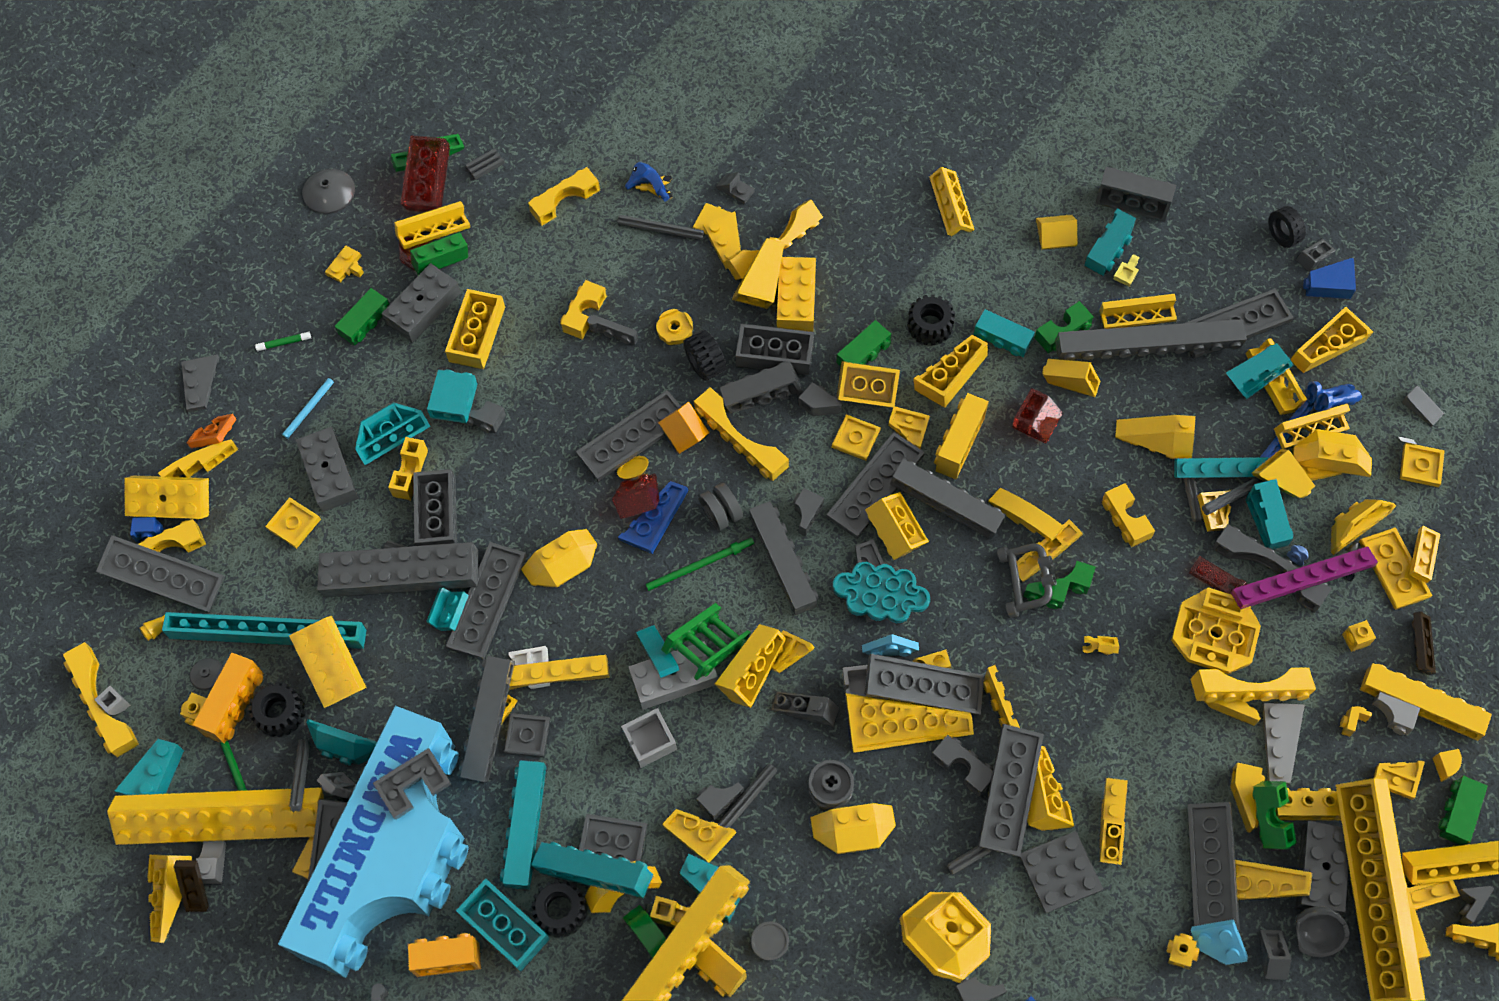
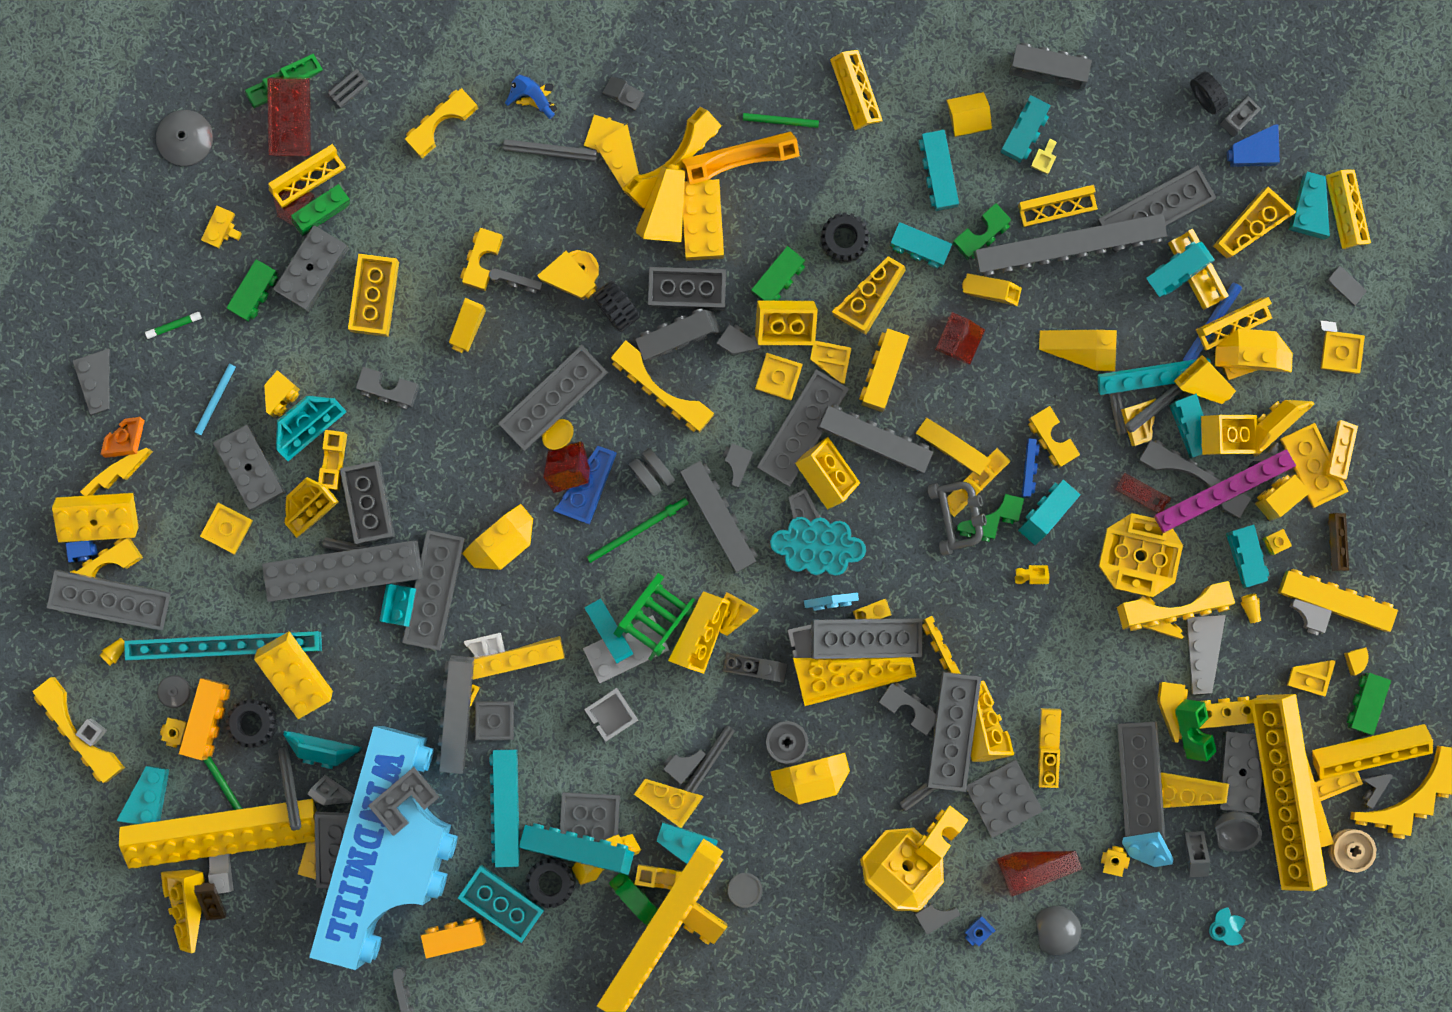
camera: 10 degrees left, 20 degrees up
(367, 400) = (279, 393): none -> yellow slope
(376, 505) = (307, 505): none -> yellow wedge
(452, 396) = (364, 379): teal brick -> none
(560, 360) = (467, 325): none -> yellow slope
(661, 327) = (569, 277): none -> yellow slope
(683, 427) = (605, 386): light orange slope -> none
(838, 242) = (772, 148): none -> light orange arch
(878, 221) = (780, 120): none -> green bar
(990, 899) = (933, 846): none -> yellow arch
(1026, 273) = (939, 169): none -> teal brick
(1089, 953) = (1033, 869): none -> clear red wedge
(1103, 541) = (1030, 468): none -> blue plate
(1119, 584) = (1049, 512): none -> wedge
(1298, 554) = (1220, 462): medium blue plate -> none
(1309, 523) = (1229, 434): none -> yellow brick
(1328, 644) = (1248, 556): none -> teal wedge
(1331, 397) = (1246, 298): blue piece -> none
(1332, 699) = (1251, 607): none -> yellow cone
(1349, 721) = (1266, 628): yellow bracket -> none
(1365, 586) = (1281, 497): none -> yellow brick
(1388, 334) = (1311, 207): none -> teal wedge
(1422, 339) = (1345, 208): none -> yellow fence
(1451, 968) = (1363, 854): none -> tan wheel

